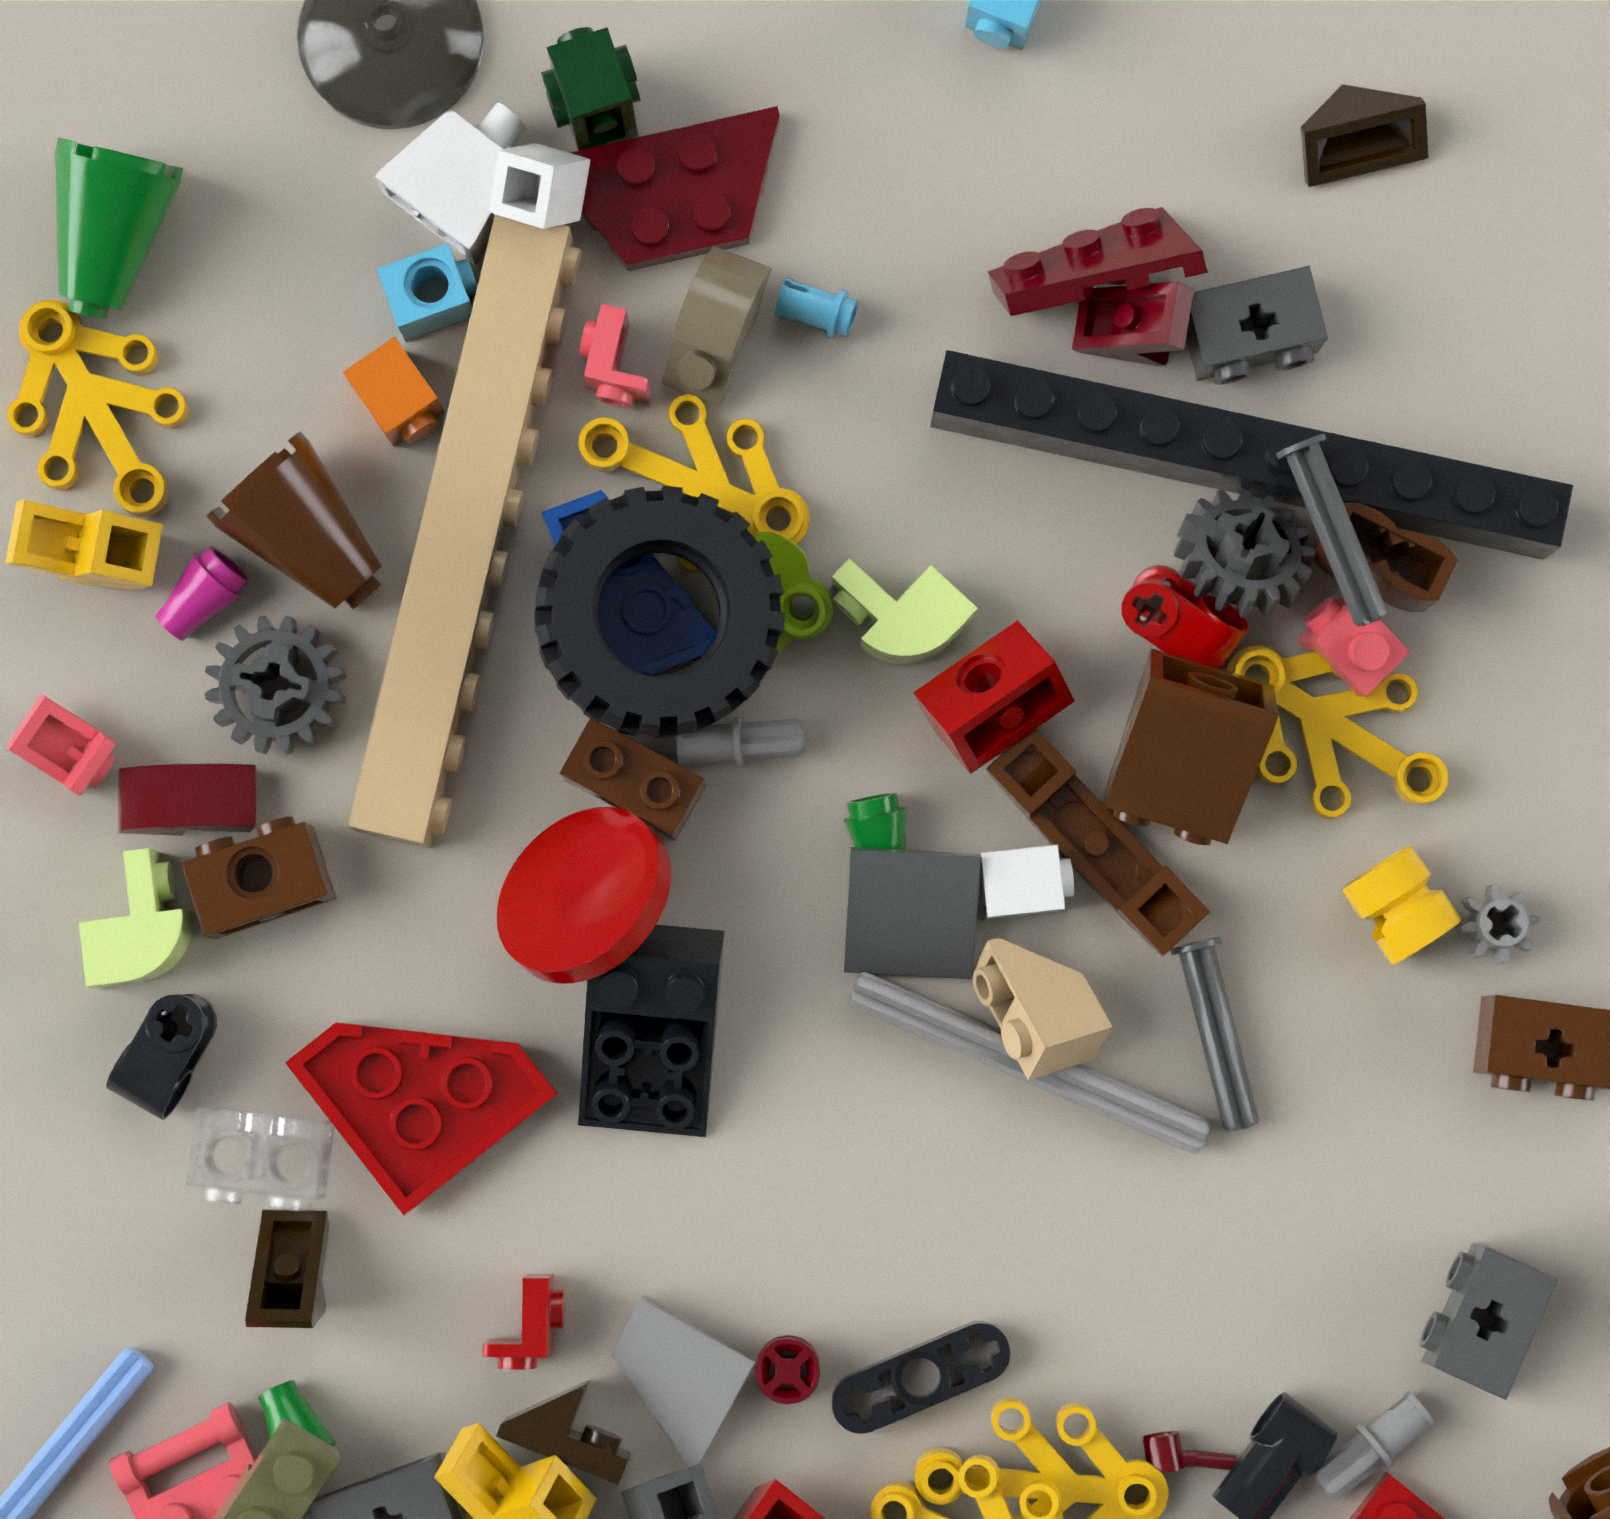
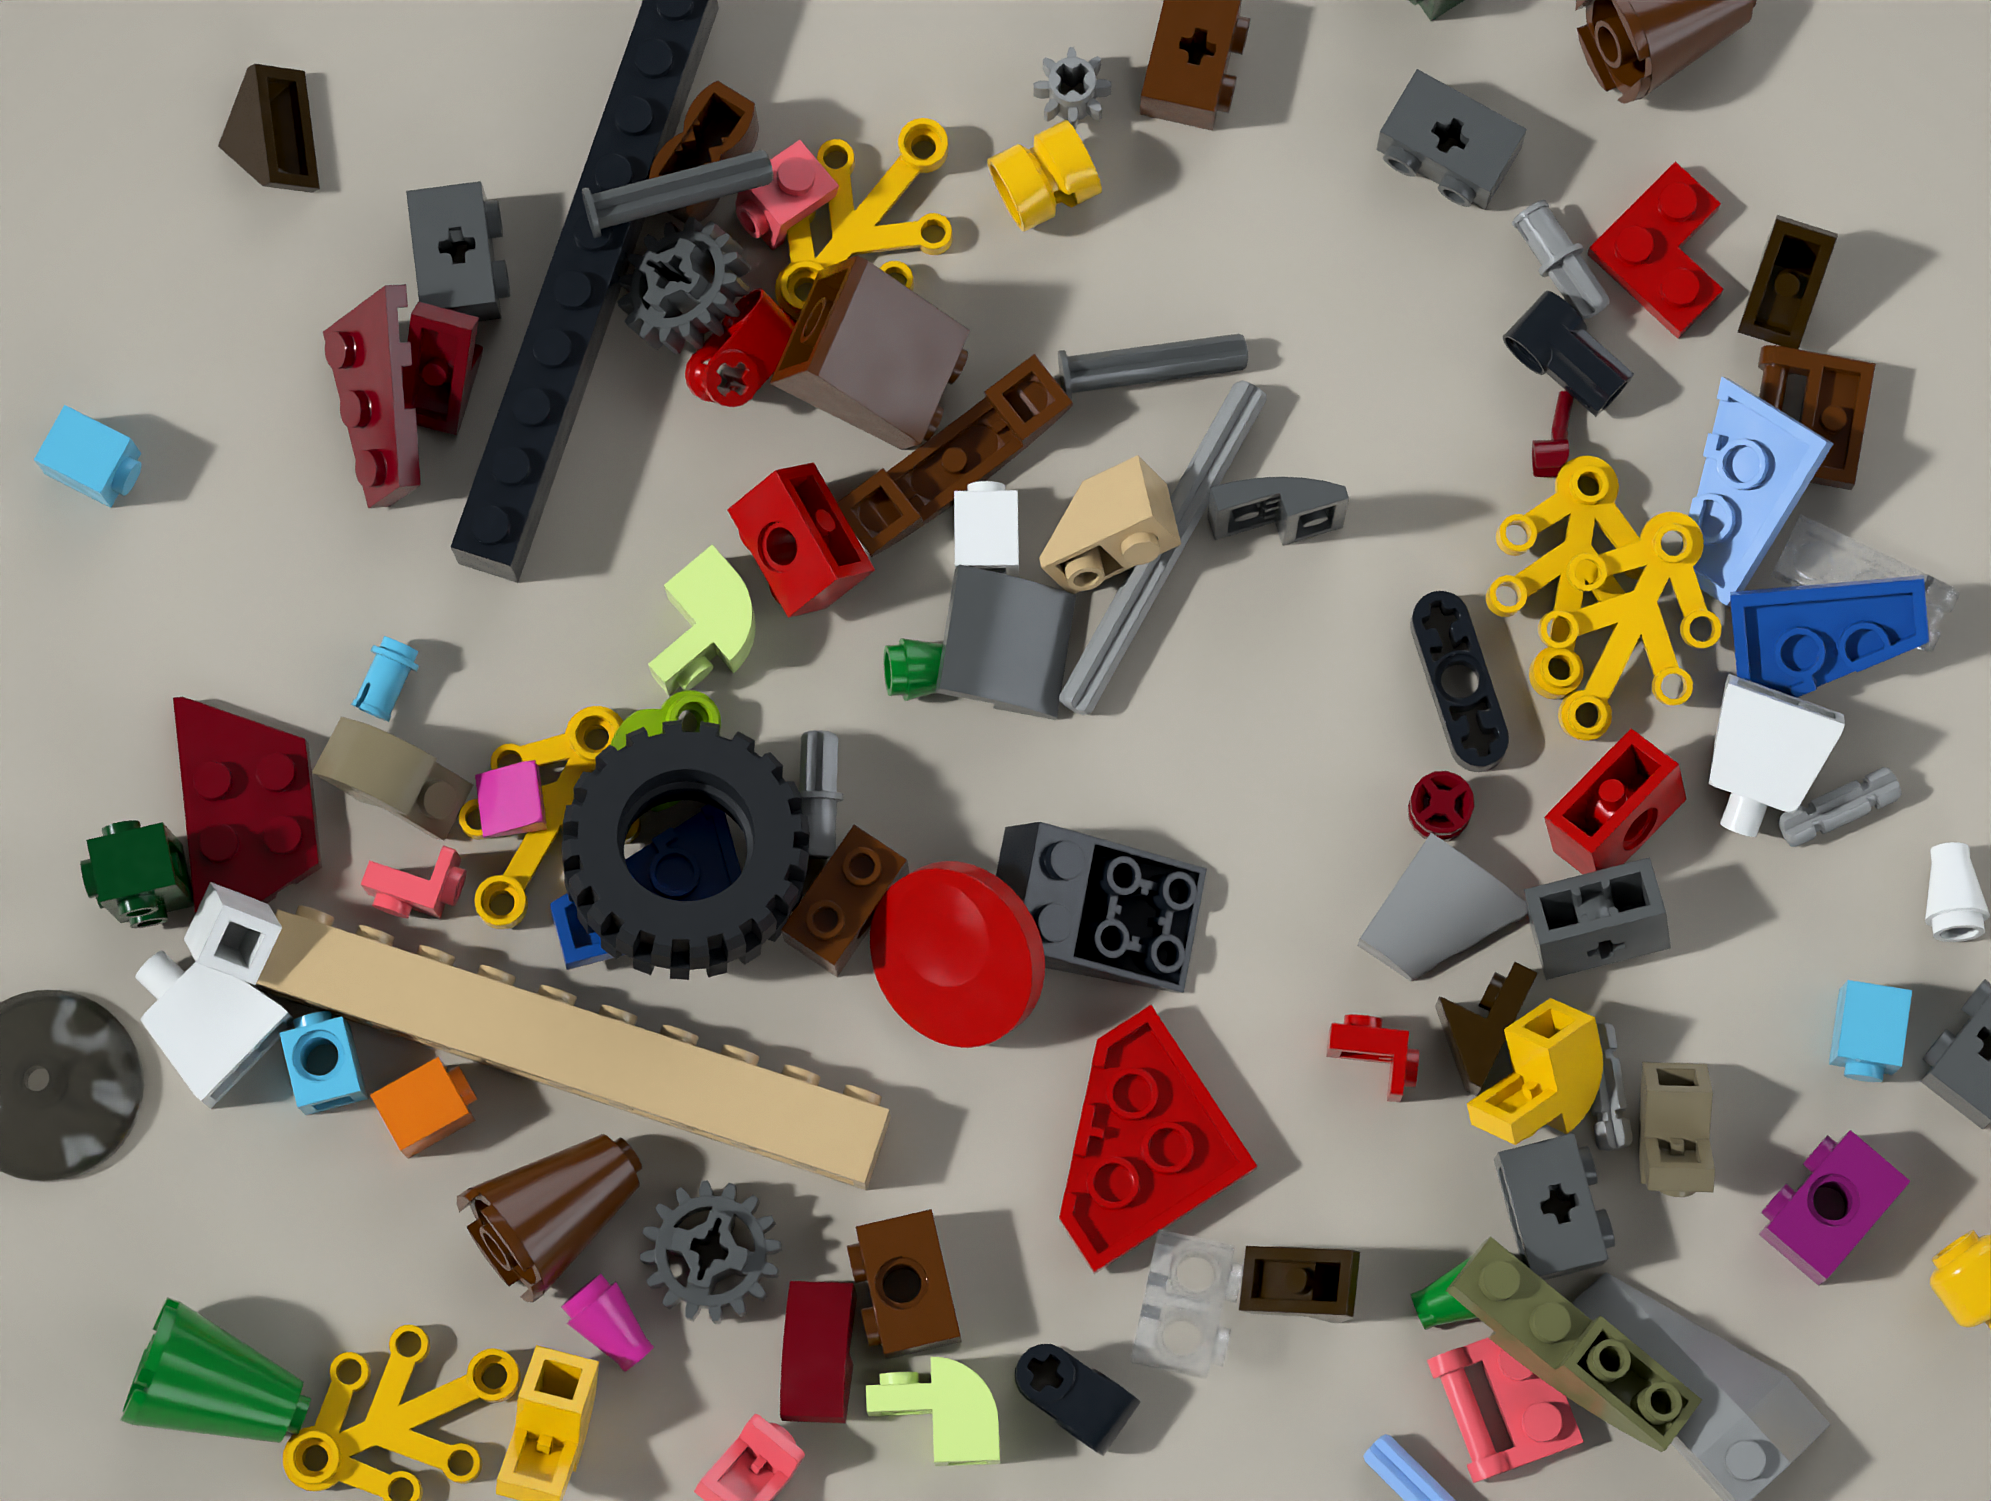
camera: 80 degrees left, 5 degrees down
(704, 442) = (511, 800): none -> dark pink slope
(1077, 1192) = (1295, 504): none -> dark grey slope

